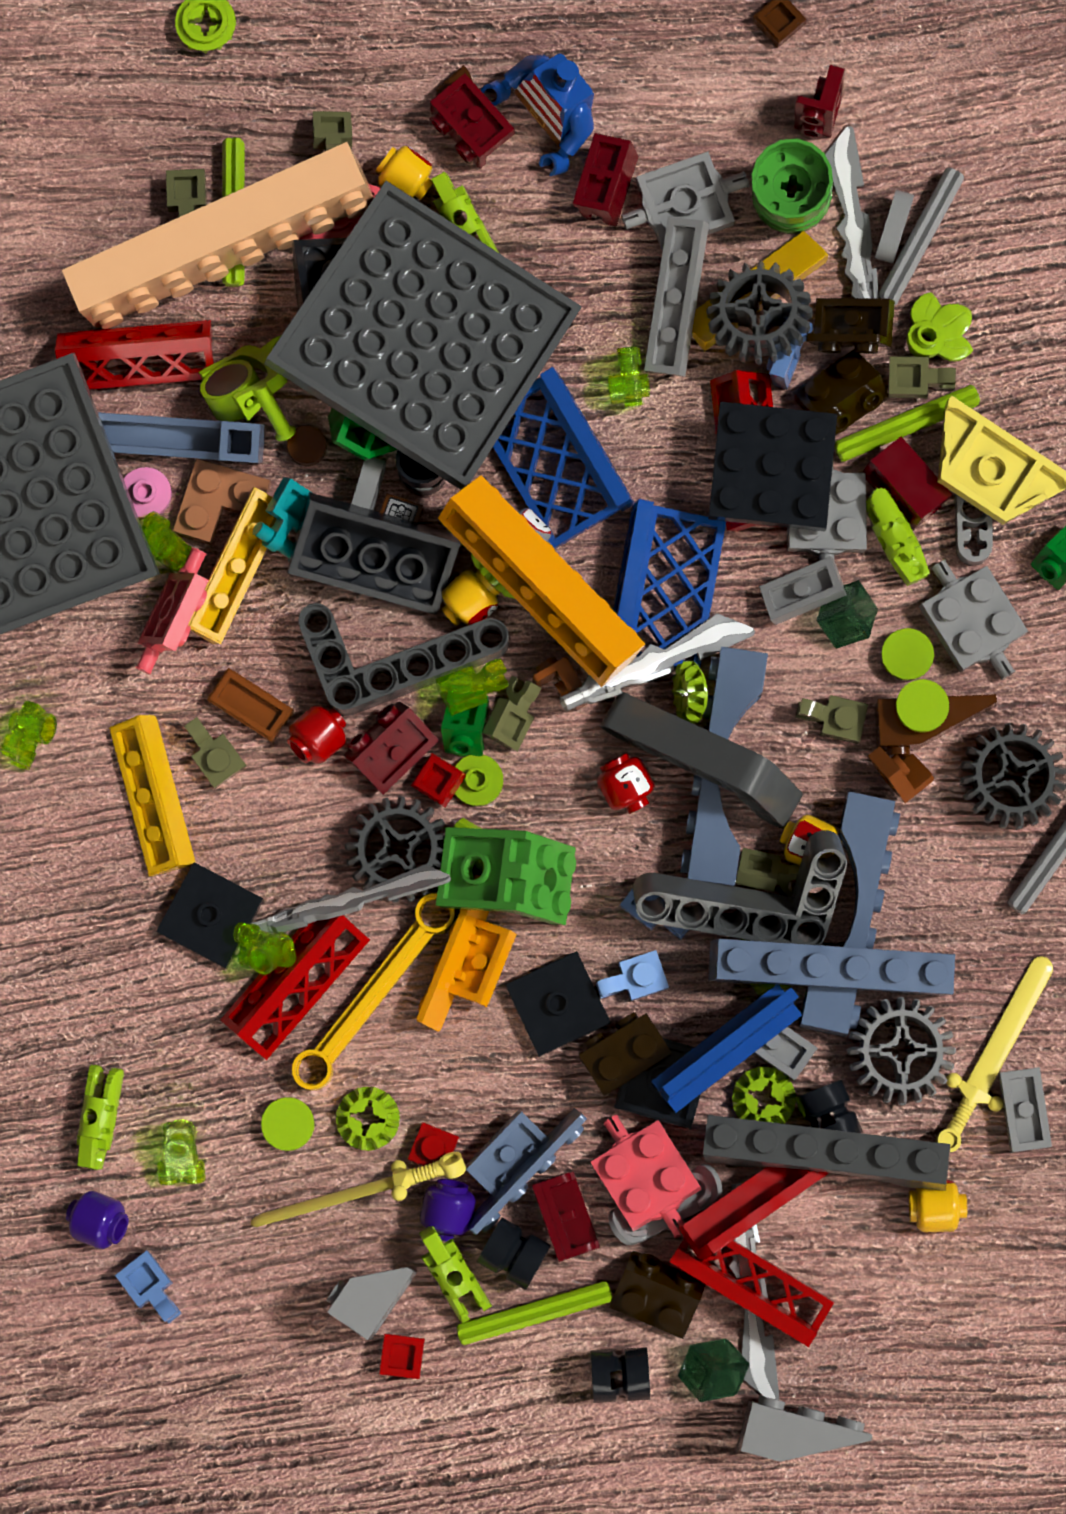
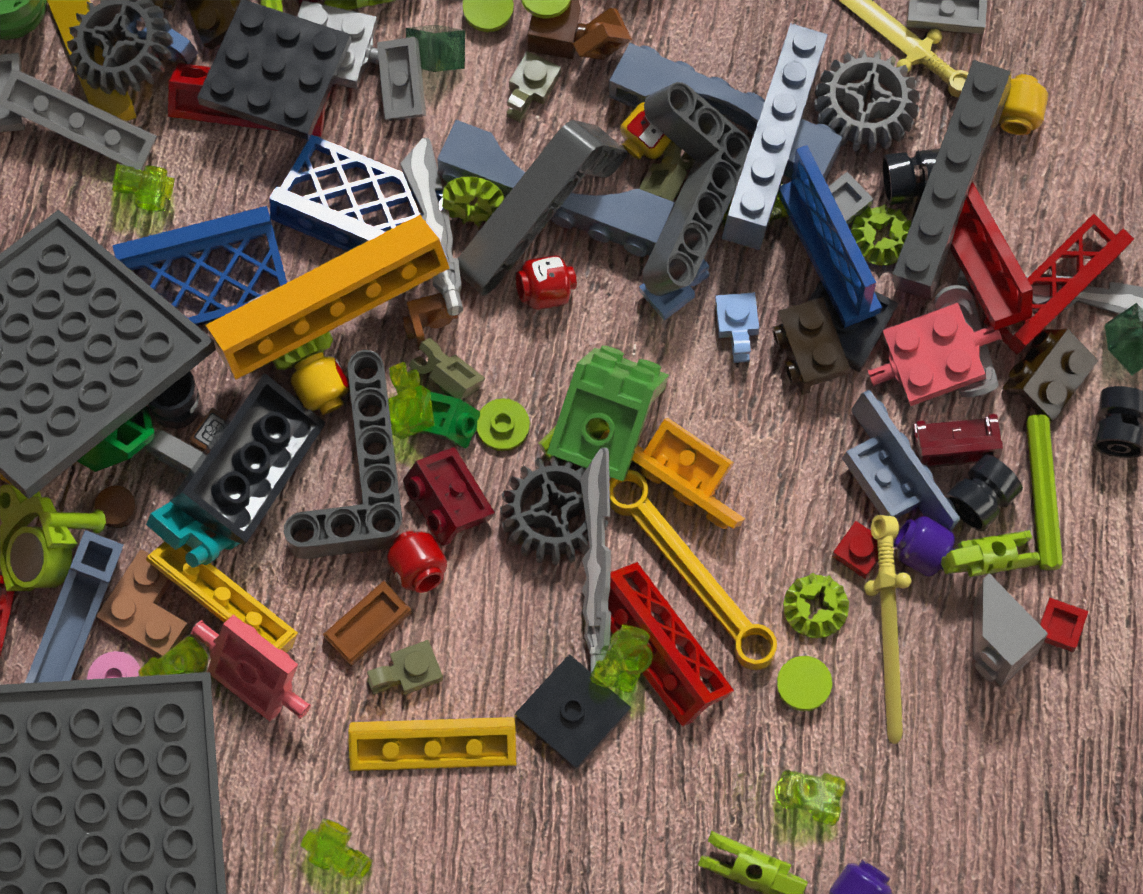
camera: 80 degrees left, 10 degrees down
(146, 1283) = (935, 859): medium blue plate -> none
(438, 780) = (494, 458): red tile -> none
(558, 1004) = (745, 400): black plate -> none

